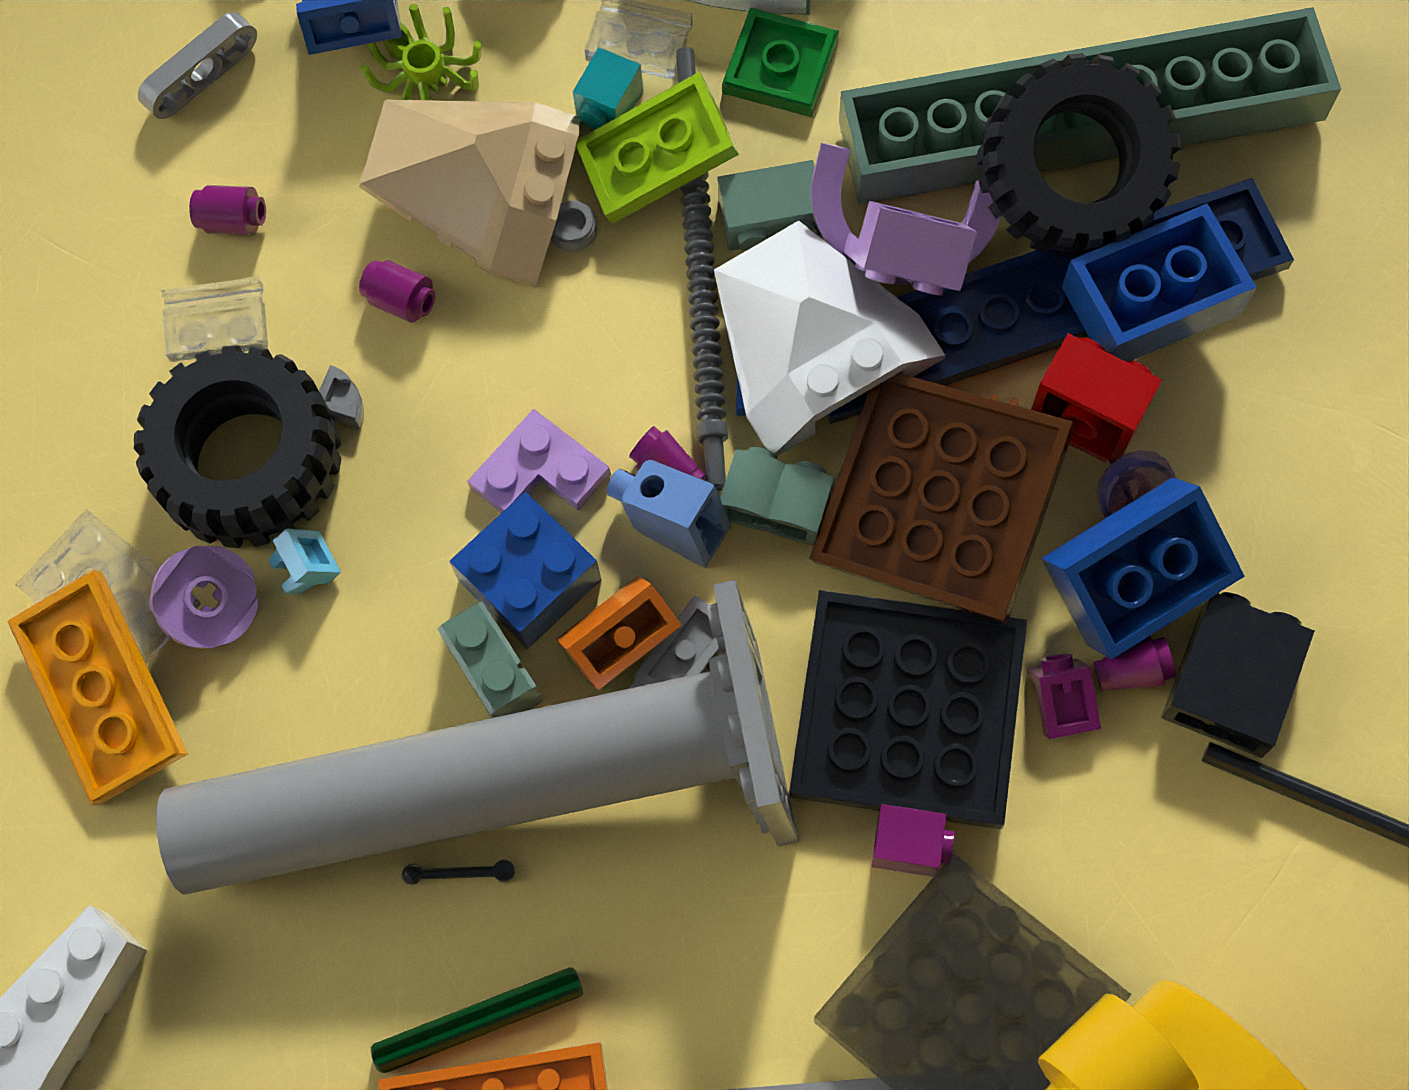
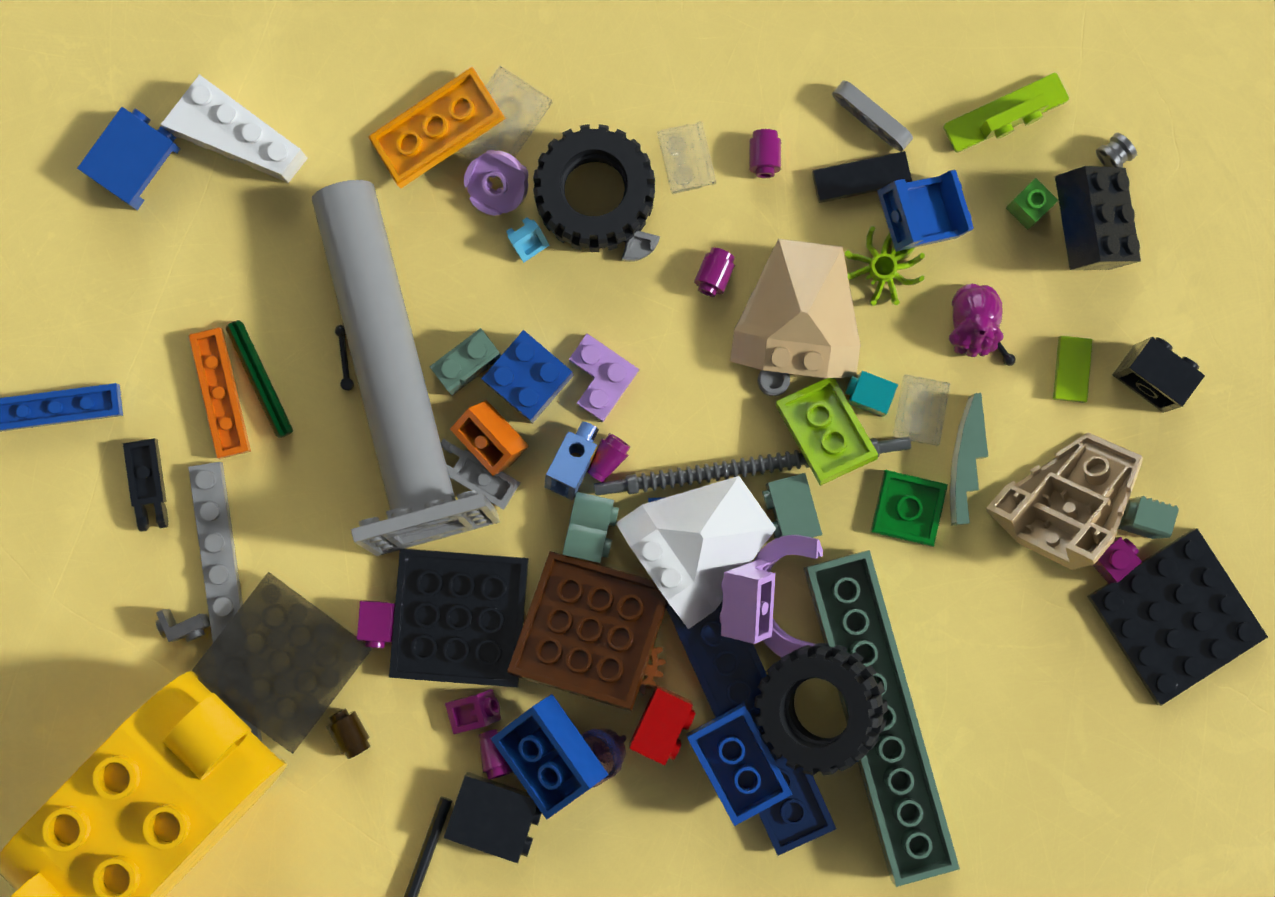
camera: 80 degrees right, 15 degrees up
(285, 91) = (860, 176): none -> black tile
(1096, 901) = (348, 733): none -> dark brown brick

